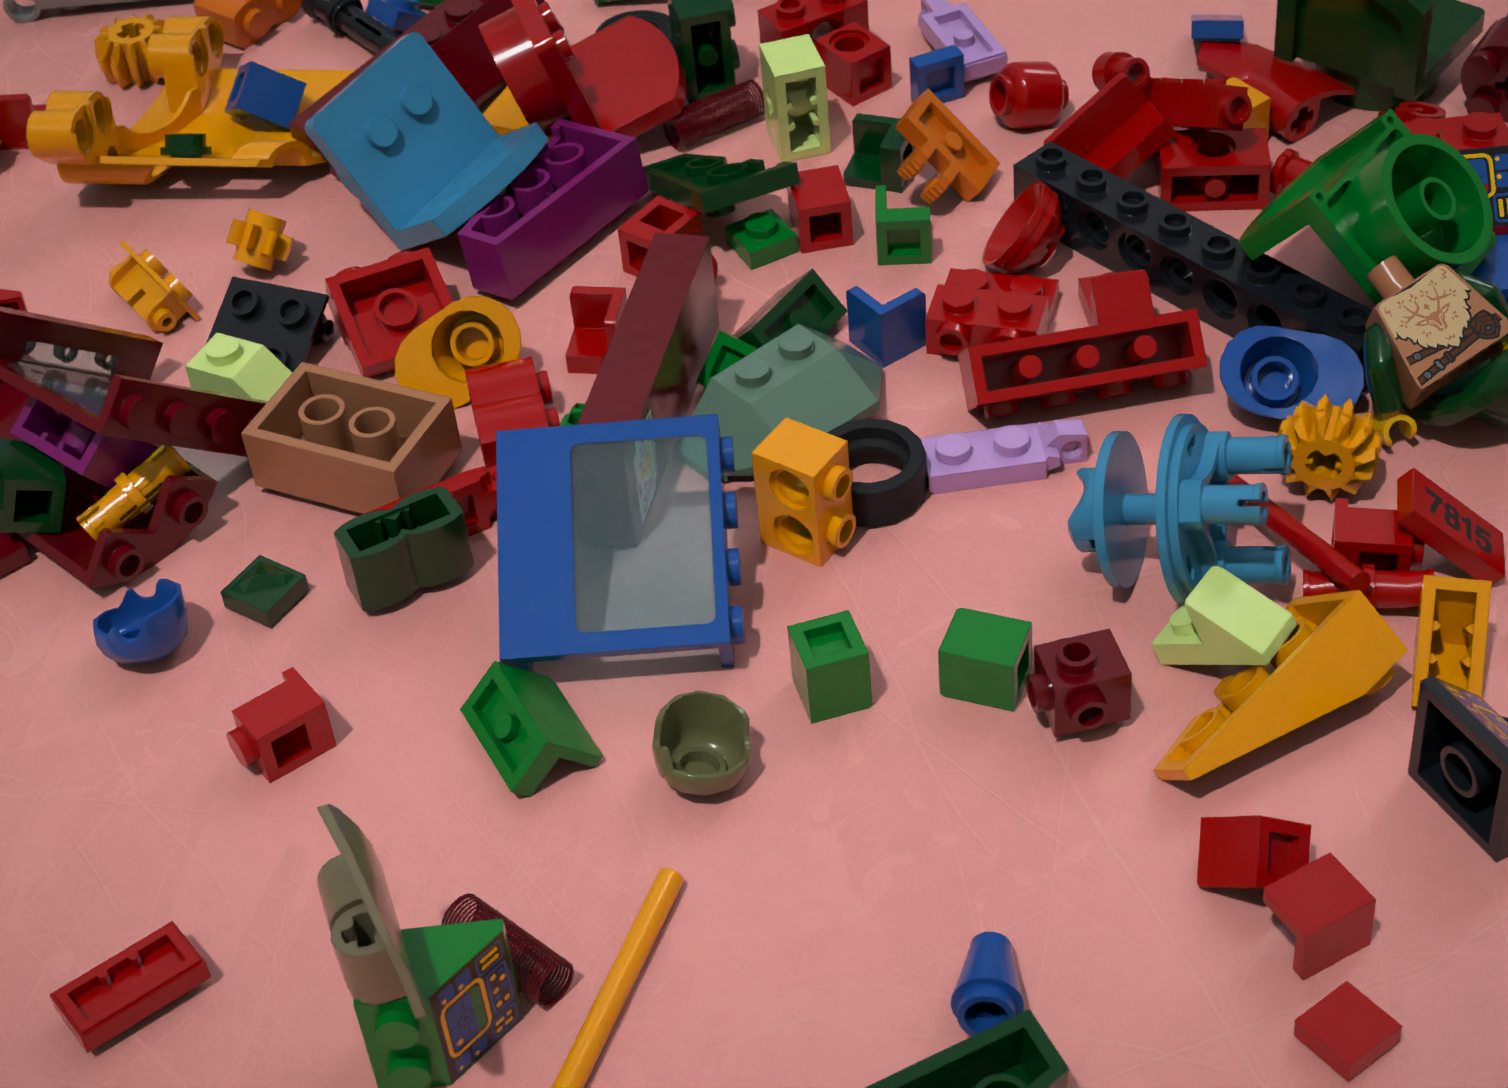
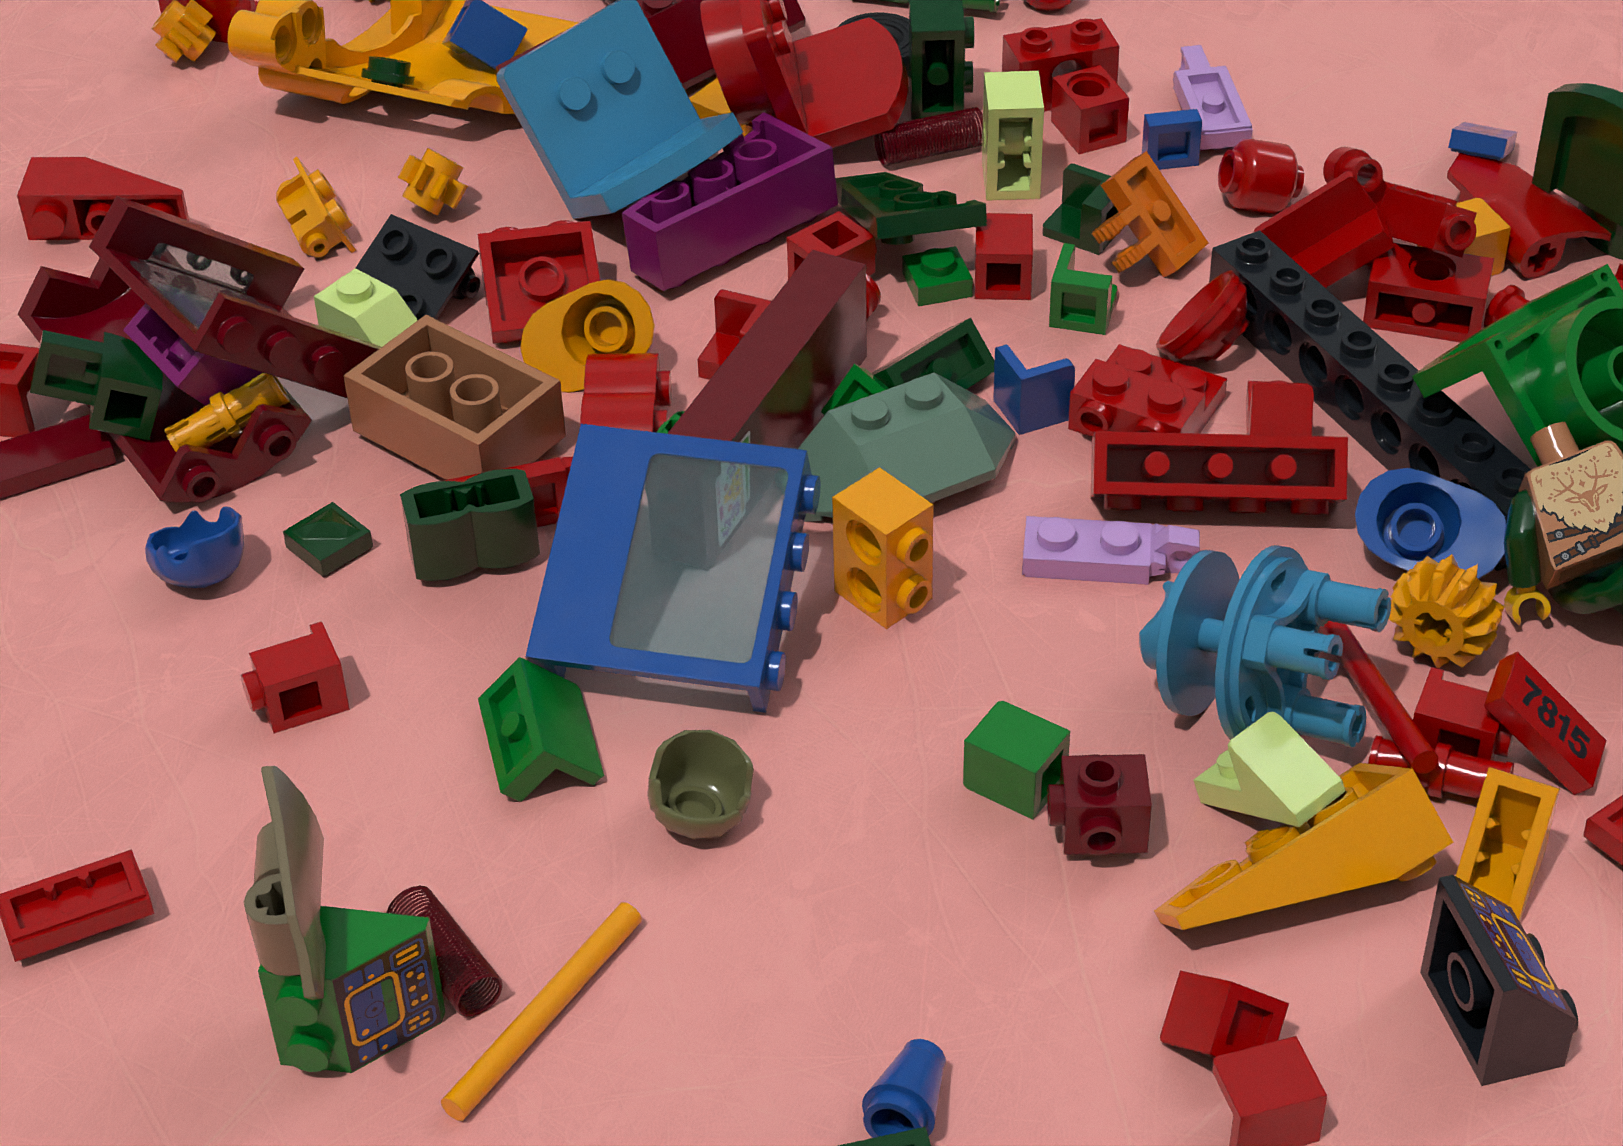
camera: 10 degrees right, 0 degrees up
(830, 666) = (854, 733): green panel -> none
(894, 445) = (986, 512): black tyre -> none

